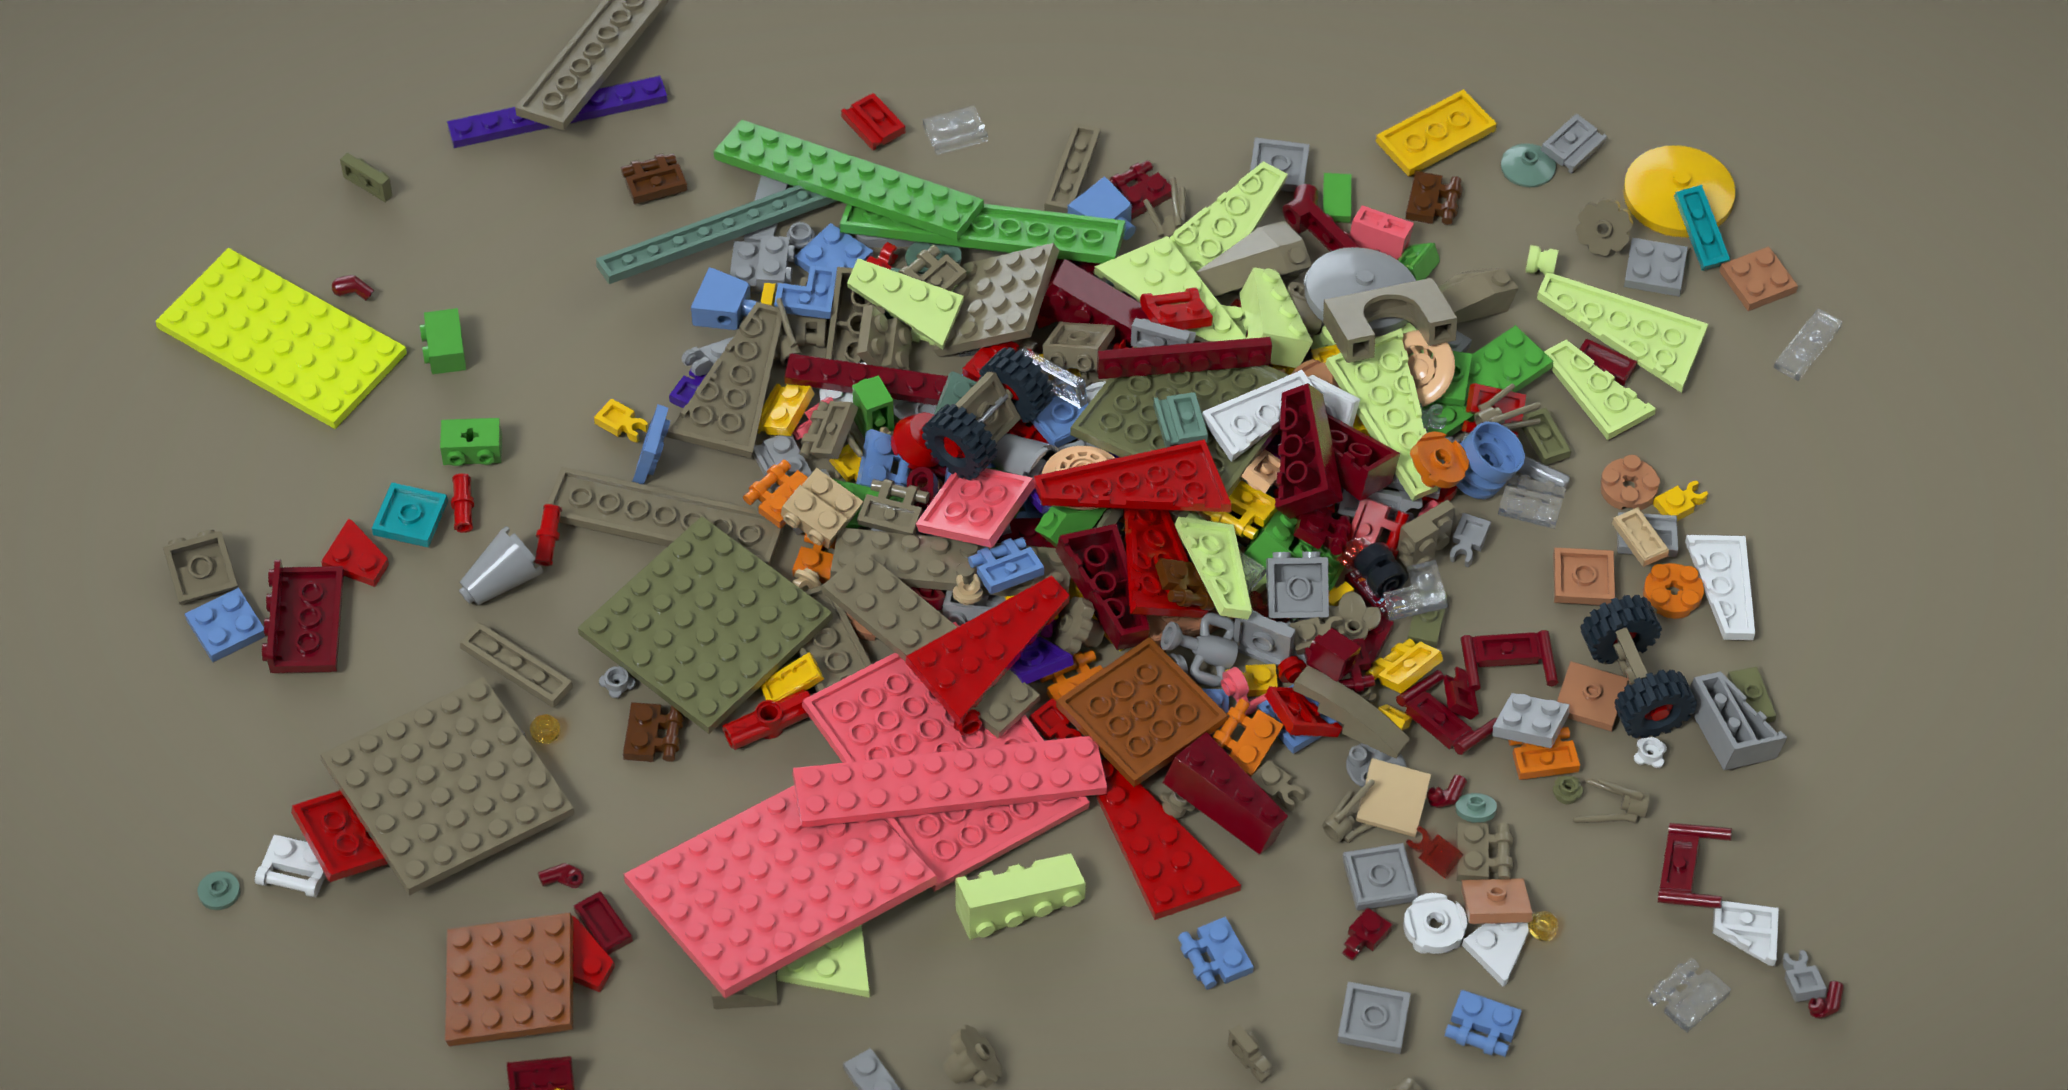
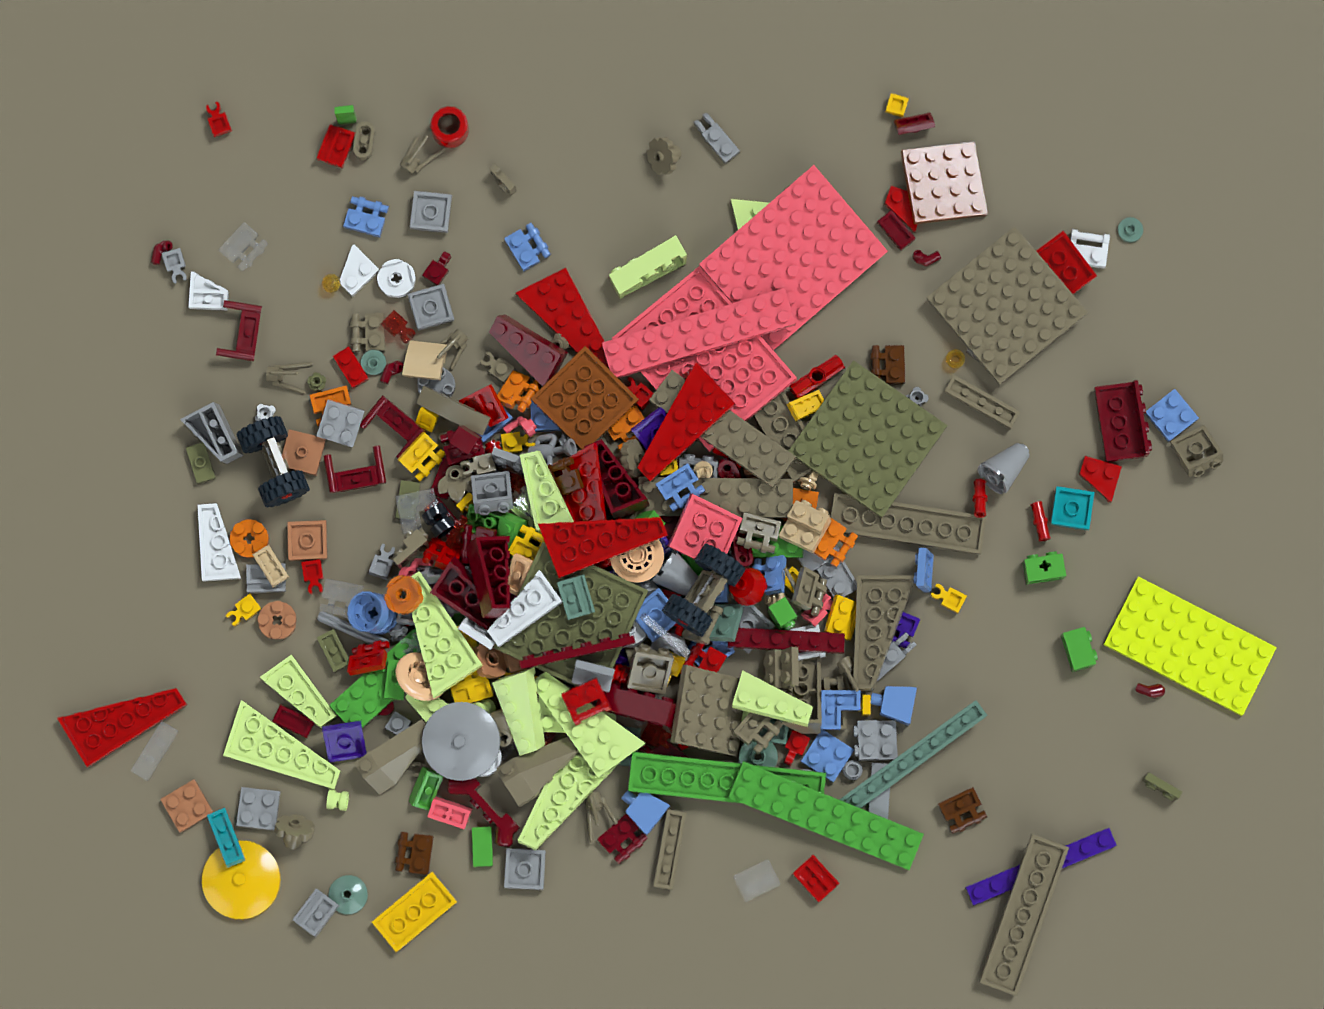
camera: 175 degrees right, 25 degrees up
(1416, 301) = (422, 716): dark tan arch -> none
(1459, 696) = (385, 437): dark red plate -> none
(1491, 414) = (369, 642): dark tan plant -> none
(1496, 901) = (359, 293): nougat plate -> none
(1513, 806) = (350, 367): none -> red plate
(1530, 320) = (344, 741): none -> dark purple tile
(1575, 532) = (313, 573): none -> red plate
(1873, 374) = (112, 726): none -> red wing

